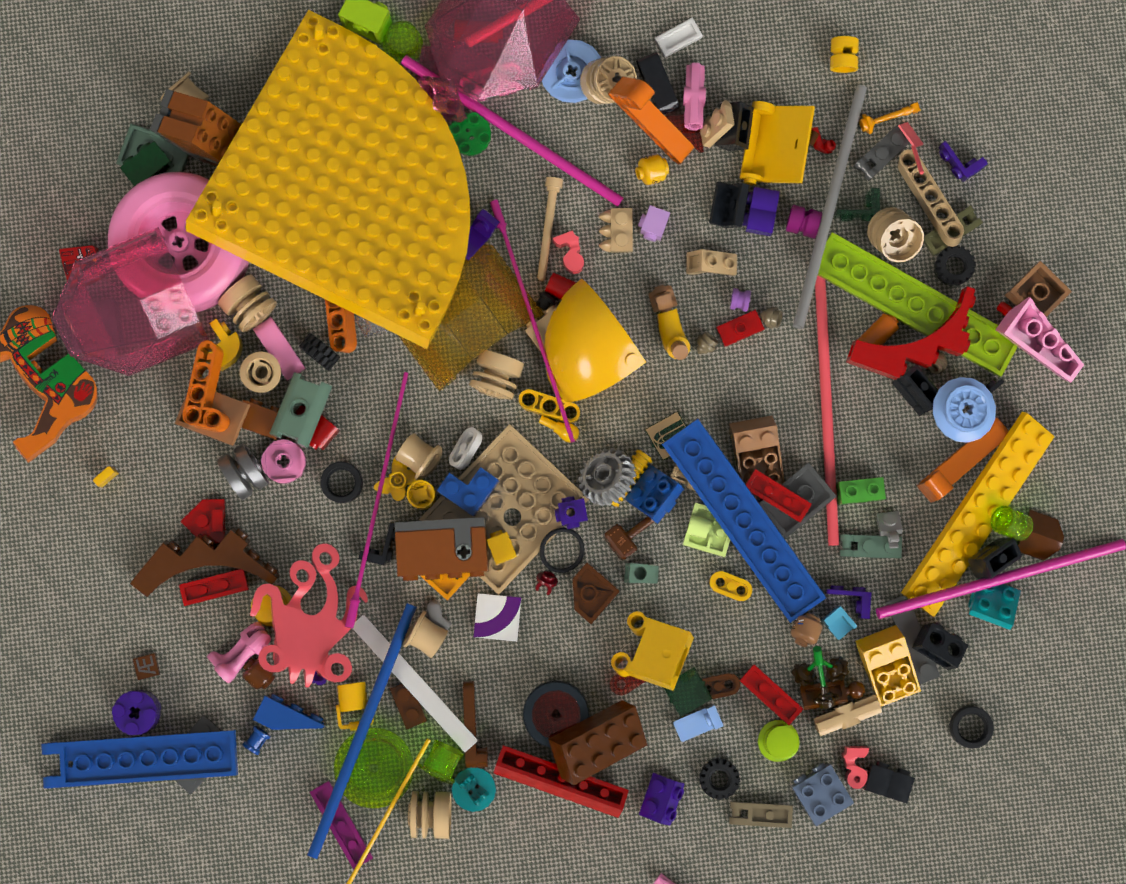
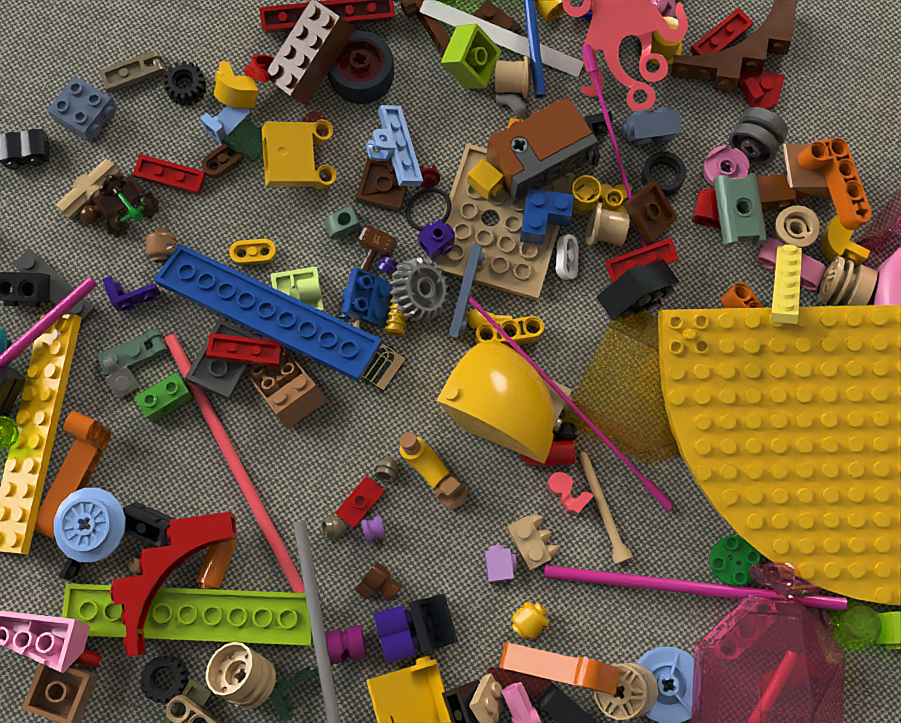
camera: 150 degrees right, 10 degrees down
(105, 476) = (873, 81): yellow tile -> none
(311, 316) = (786, 285): none -> light yellow plate
(319, 351) = (754, 274): black tyre -> none
(331, 525) = (659, 125): none -> sand blue brick
(374, 450) = (650, 211): none -> reddish brown plate
(405, 412) = (655, 252): none -> red plate
(428, 380) = (638, 290): none -> black brick
(454, 671) = (471, 56): none -> lime brick
(480, 232) = (668, 462): dark purple bracket -> none
(496, 375) = (575, 333): tan wheel -> none
(497, 617) = (456, 127): tile -> none
(548, 478) = (458, 323): none -> sand blue plate
(561, 622) = (395, 144): none -> light blue plate
(621, 516) = (387, 265): none -> dark purple plate
(641, 762) = (259, 67): none -> red helmet
(662, 799) = (229, 43): dark purple bracket -> none
(681, 745) = (234, 90): none -> yellow brick
(711, 262) = (420, 553): tan bracket -> none
(755, 259) = (378, 580): none -> reddish brown piece
(778, 741) = (142, 136): lime piece -> none
(839, 622) = (133, 268): medium azure panel -> none
(856, 775) = (66, 156): coral leg -> none
(888, 665) = (68, 251): yellow slope -> none

